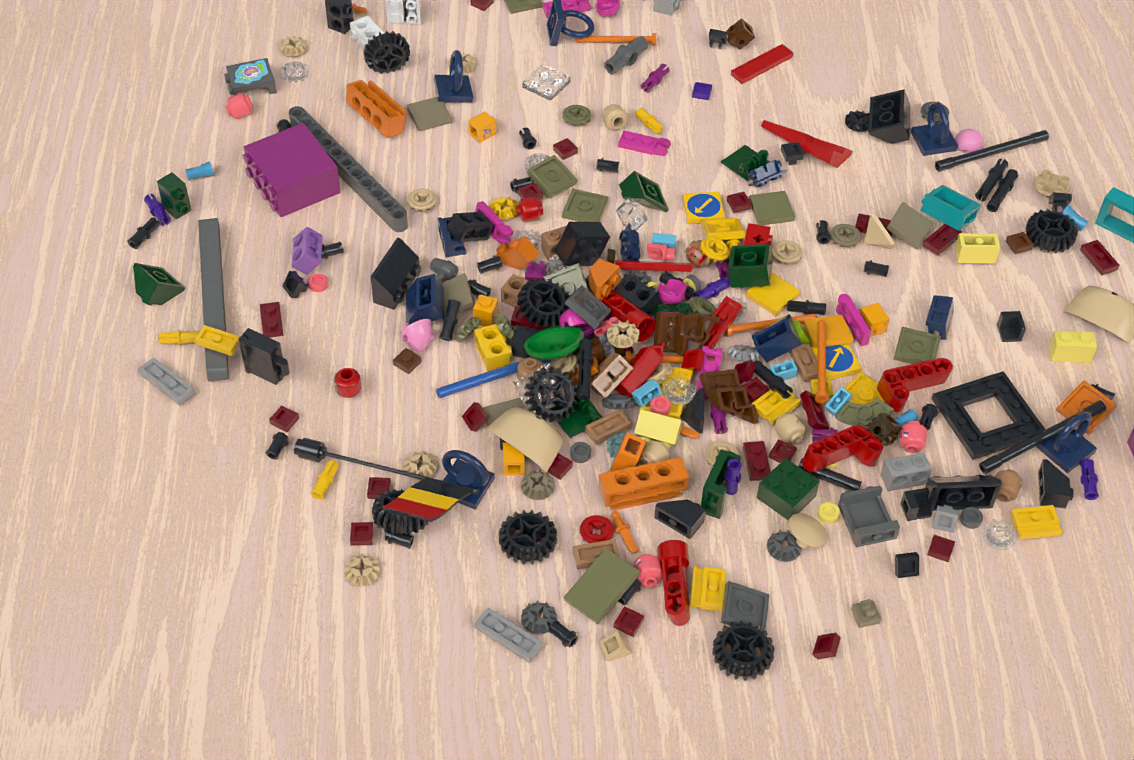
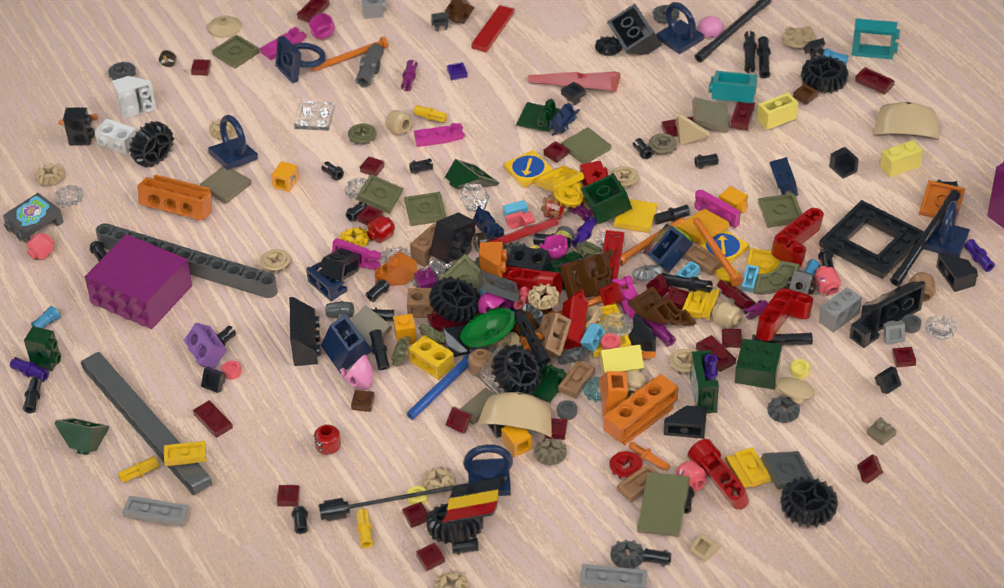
camera: 25 degrees left, 5 degrees down
(263, 356) = (238, 449): black piece -> none
(394, 477) = (413, 500): none -> light yellow tile
(524, 543) = (573, 490): black gear -> none
(628, 621) = (703, 522): dark red plate -> none
(867, 516) = (833, 358): dark grey panel -> none
(1036, 522) = (962, 304): yellow plate -> none

